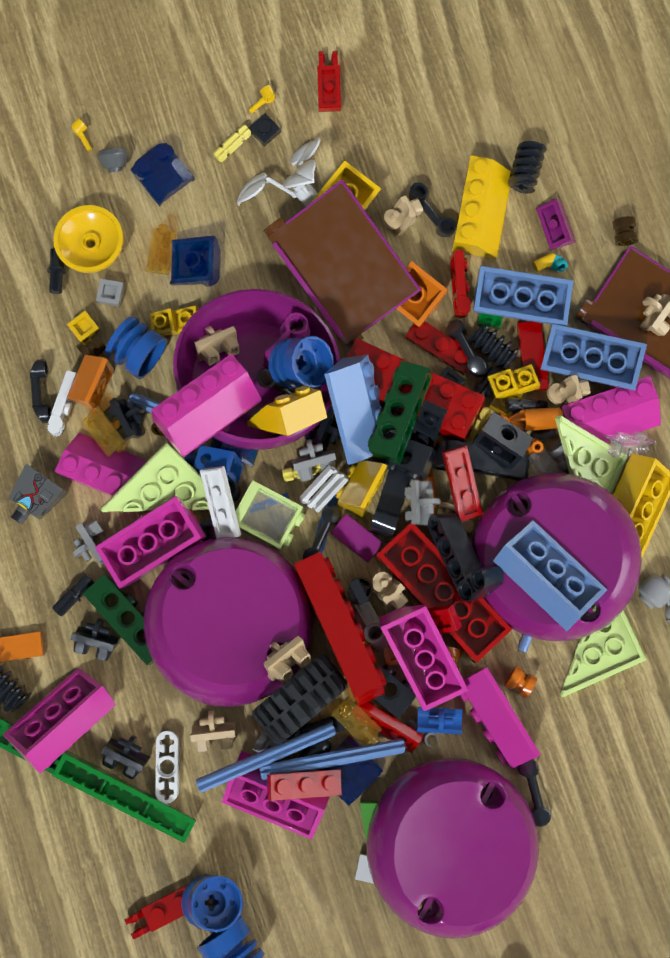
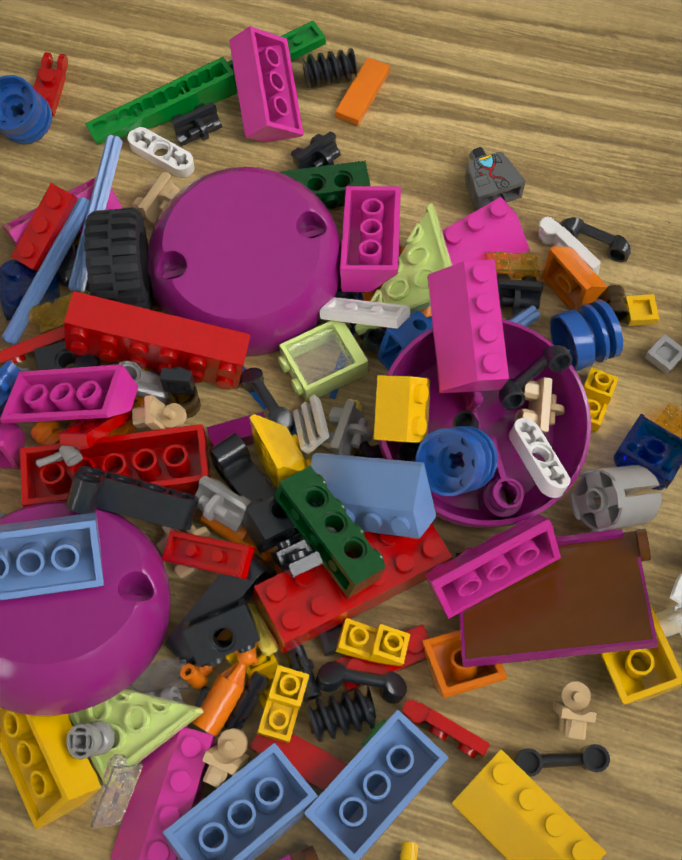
camera: 125 degrees right, 15 degrees down
(72, 595) = (373, 161): black axle -> none
(88, 533) = (415, 198): light grey hips -> none
(189, 340) = (556, 357): none -> black bar
(249, 261) = (611, 487): none -> light grey cylinder
(262, 300) = (548, 475): none -> white beam
(284, 657) = (165, 261): tan hips -> none
(348, 308) = (494, 565): none -> dark pink slope
(441, 353) = (373, 644): none -> yellow slope
(467, 630) = (68, 453): none -> light grey hand
(614, 475) = (90, 739): none -> light grey wheel

